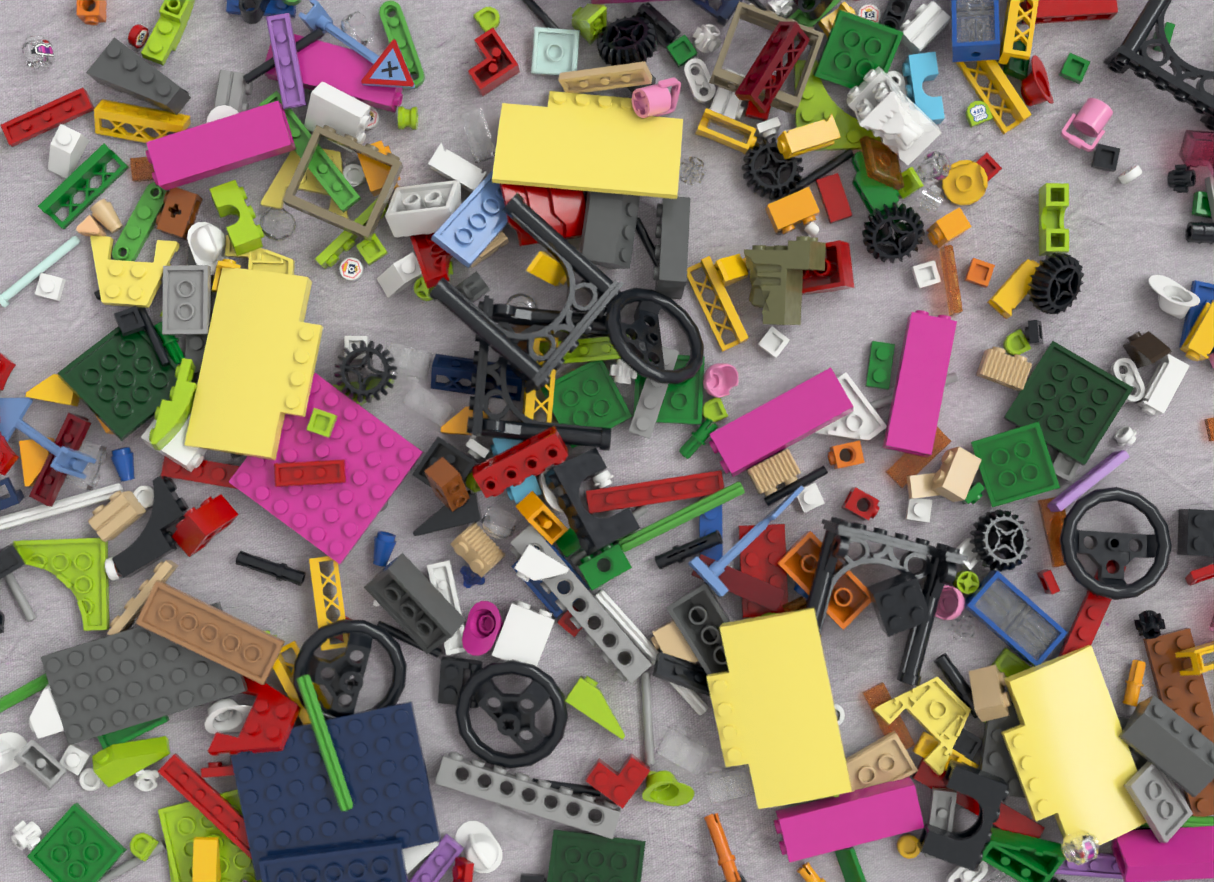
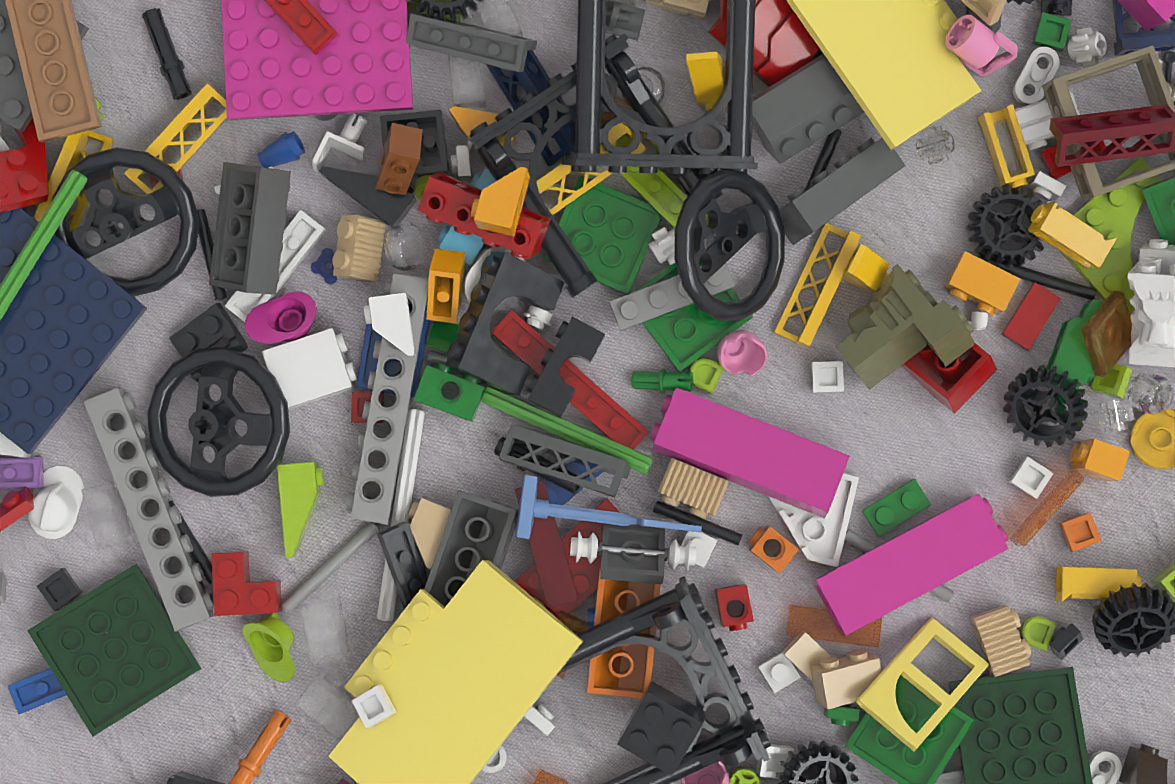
camera: 50 degrees right, 0 degrees up
(409, 507) = (344, 142): none -> white bracket
(412, 387) = (469, 42): none -> dark grey fence
(524, 446) = (502, 203): none -> light orange slope
(650, 507) = (576, 340): none -> black arch
(695, 526) = (569, 453): none -> dark grey fence
(752, 759) = (373, 706): none -> white plate
(785, 537) = (633, 553): none -> dark grey plate
(835, 667) = (541, 718): none -> white plate
(982, 464) = (880, 697): none -> light yellow window

